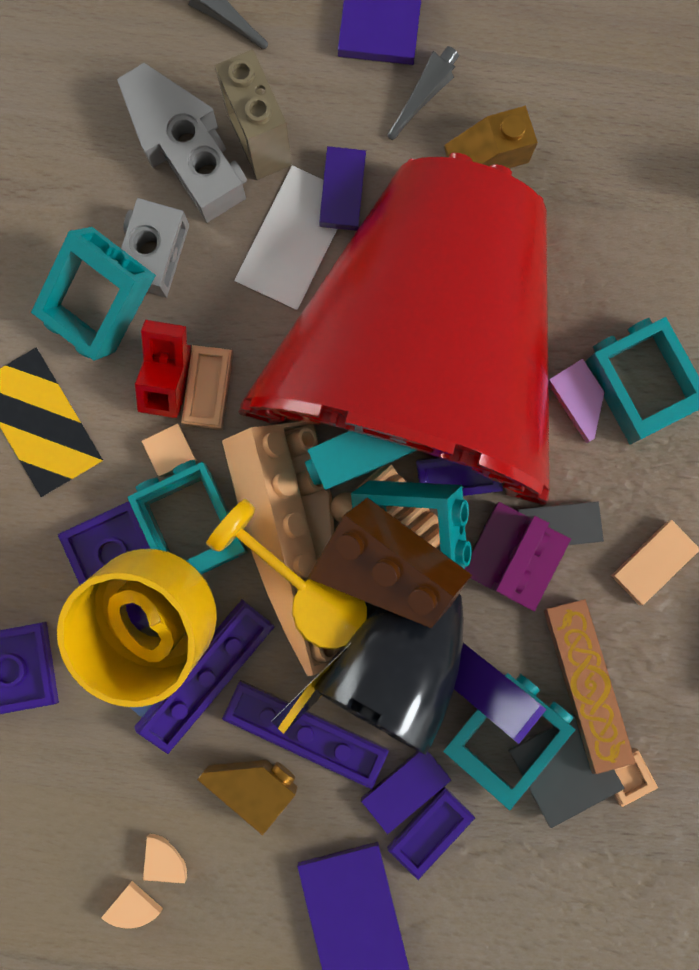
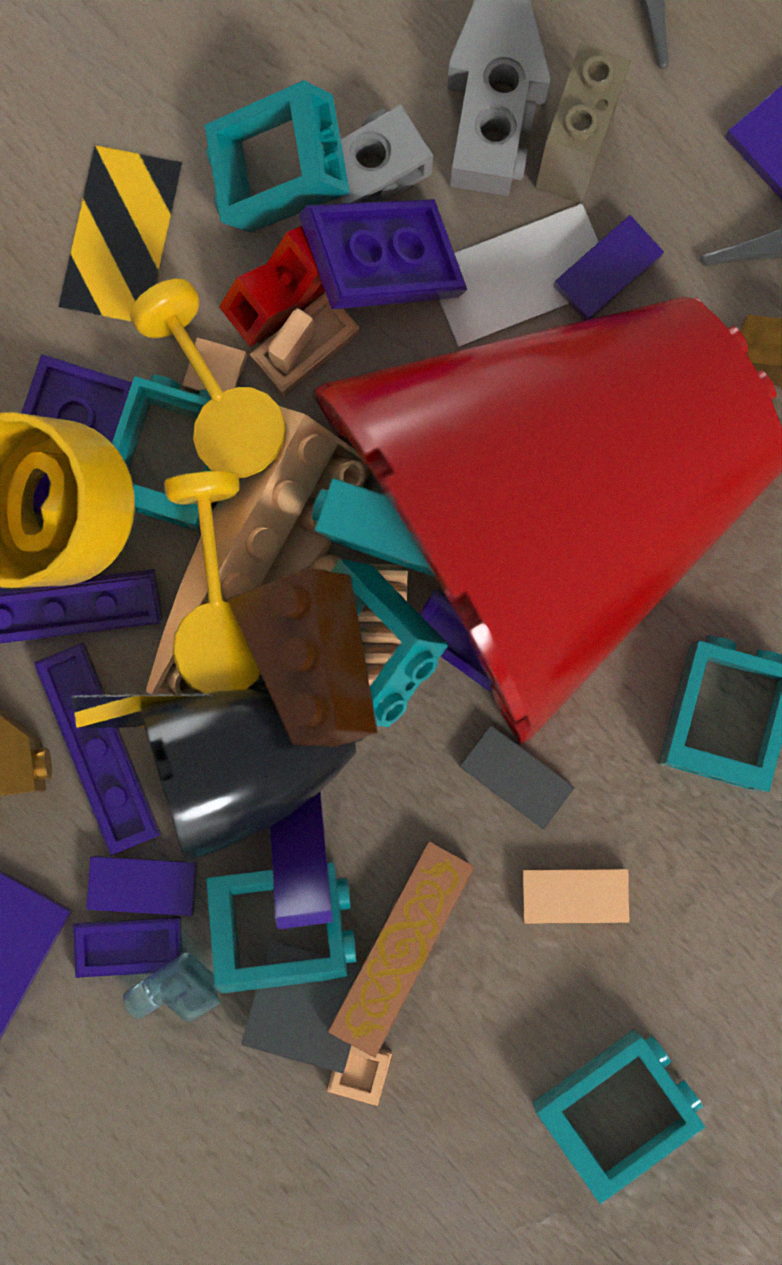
camera: 45 degrees right, 0 degrees up
(200, 392) = (291, 340): none -> light nougat tile
(206, 294) = (382, 252): none -> dark purple tile
(217, 472) = (237, 427): none -> yellow piece
(485, 826) = (181, 985): none -> clear light blue piece
(517, 555) = (446, 766): magenta bracket -> none
(580, 397) = (651, 672): lavender tile -> none

